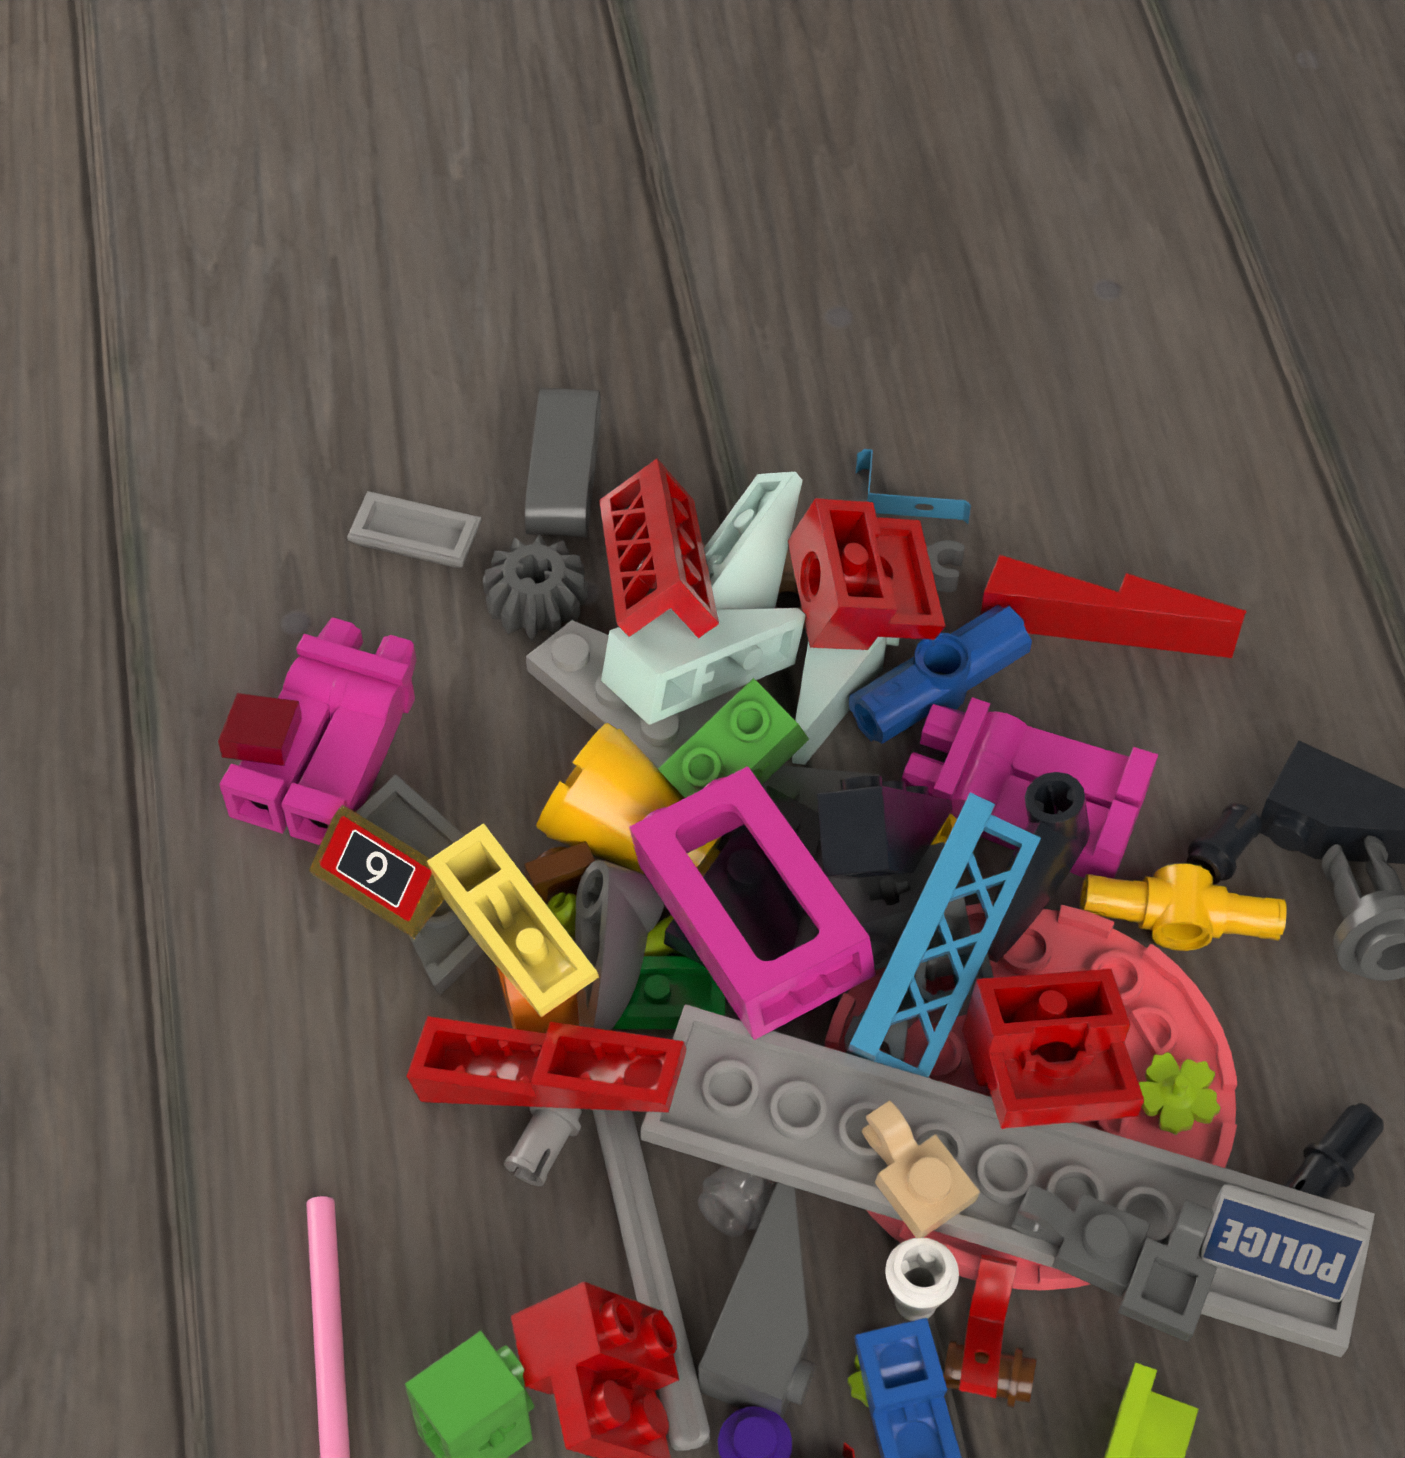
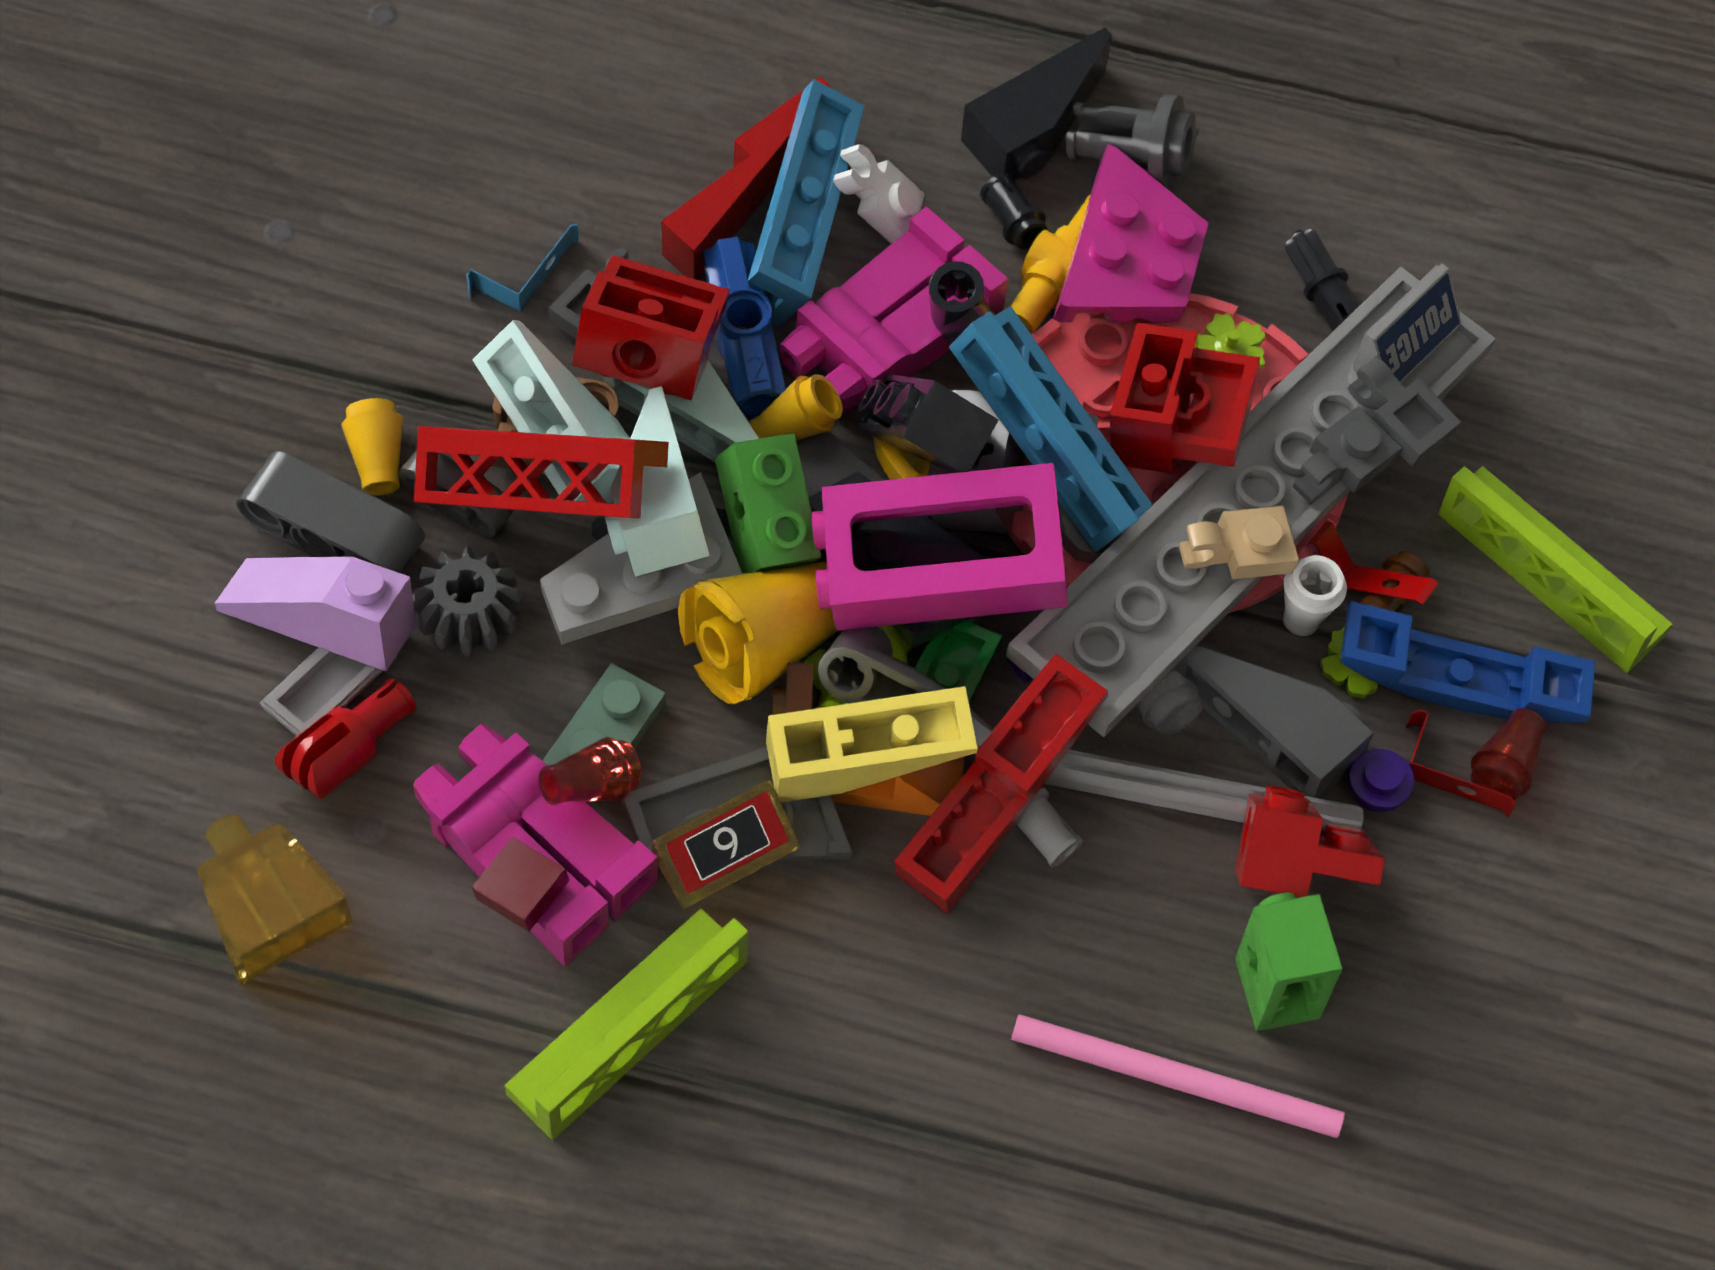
camera: 70 degrees left, 5 degrees up
(182, 568) = (267, 896): none -> clear yellow torso
(185, 881) = (628, 1022): none -> lime fence
(356, 560) = (343, 740): none -> red arm
(391, 735) = (593, 774): none -> clear red cone
(467, 747) = (616, 708): none -> sand green plate
(473, 493) = (326, 603): none -> lavender slope
(669, 444) = (375, 439): none -> yellow cone
(869, 748) = (803, 408): none -> yellow cone
(1103, 652) = (804, 199): none -> dark azure fence
(1158, 721) = (884, 192): none -> white plate
(1230, 952) = (1132, 248): none -> dark pink wing

